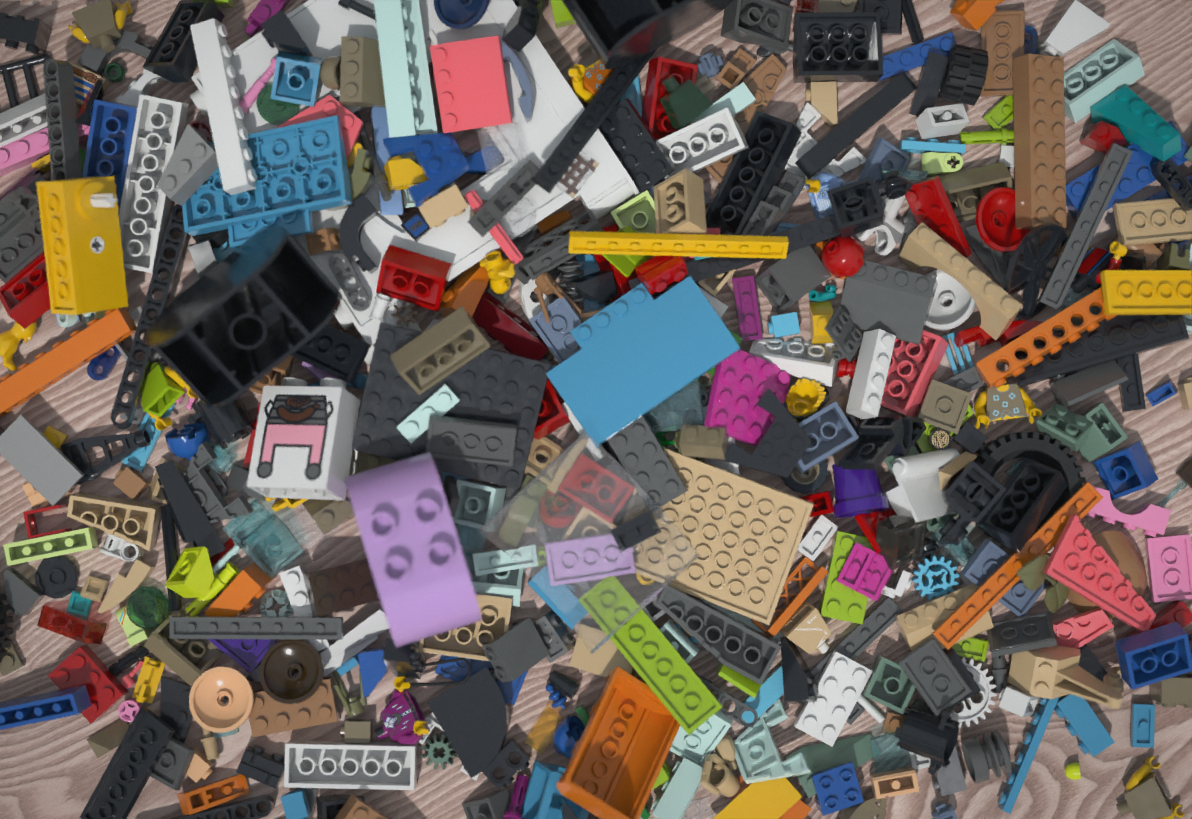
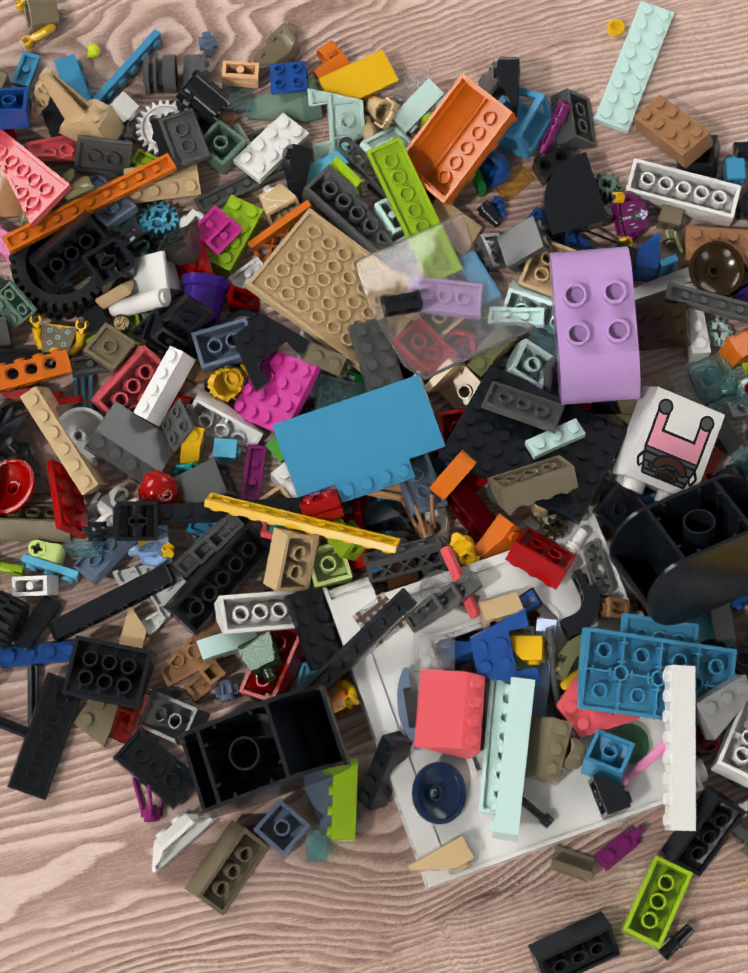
camera: 165 degrees left, 15 degrees down
(529, 344) = (452, 475): none -> orange beam

